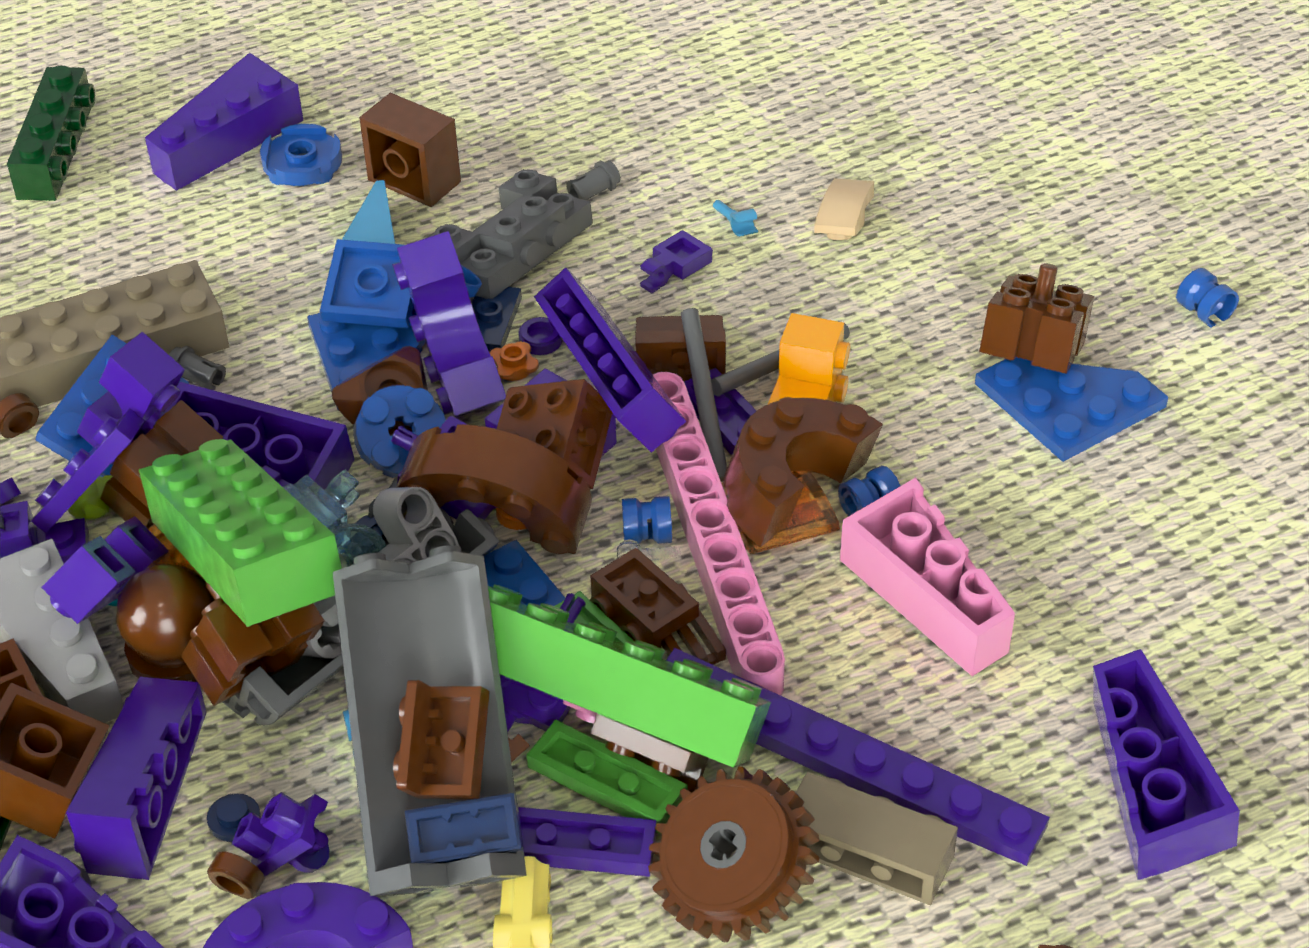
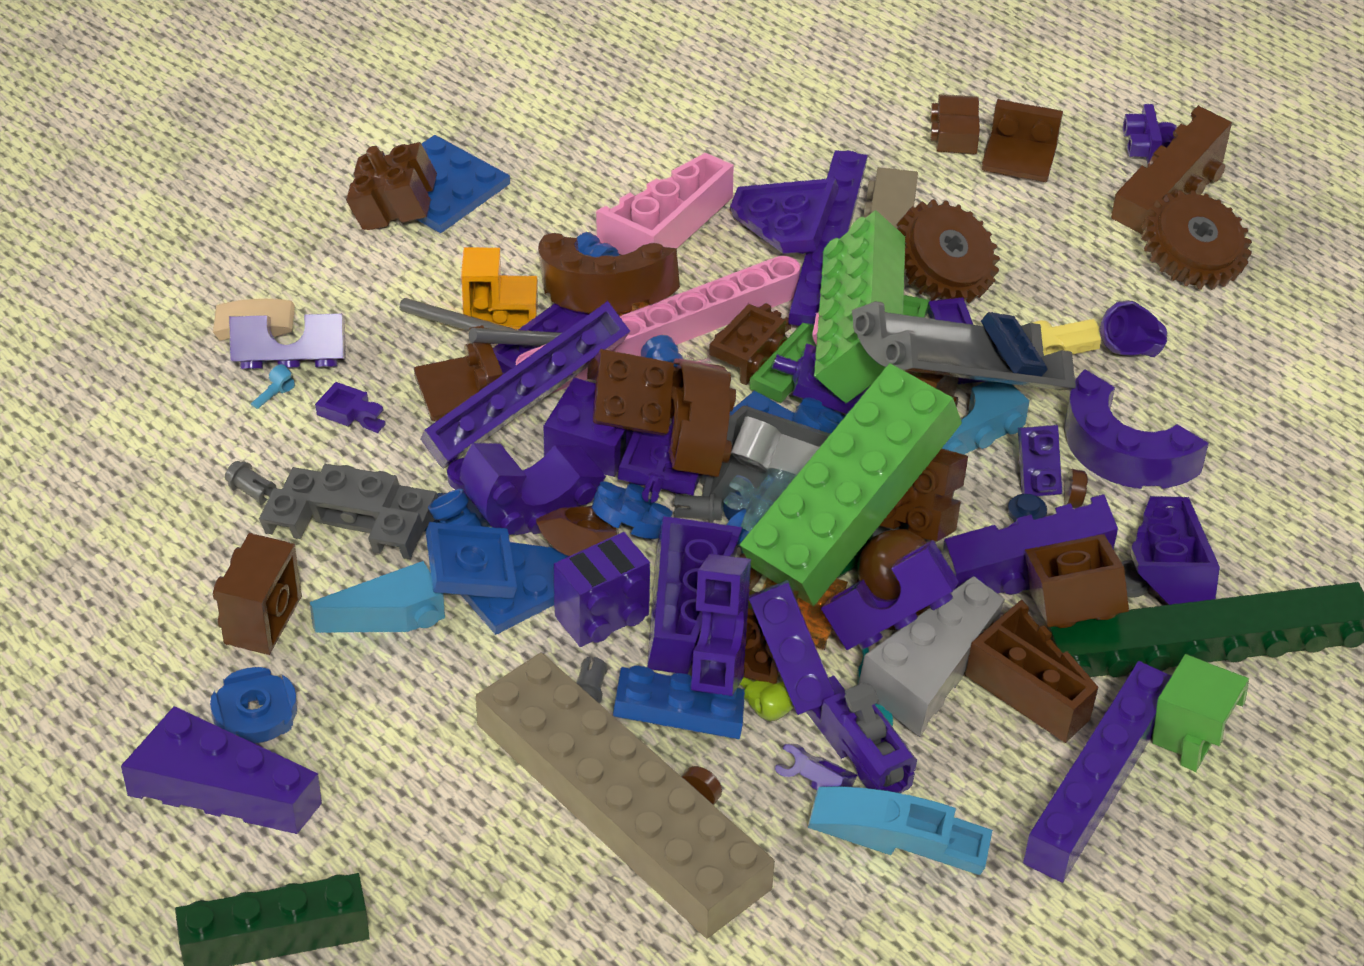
camera: 110 degrees left, 0 degrees up
(282, 362) = (602, 589): none -> dark purple brick
(441, 741) = (975, 340): reddish brown bracket -> none
(780, 231) = (253, 342): none -> arch
(881, 699) = (787, 213): none -> dark purple plate
(1161, 776) = (785, 105): dark purple wedge -> none
(1203, 294) = (322, 120): blue wheel -> none

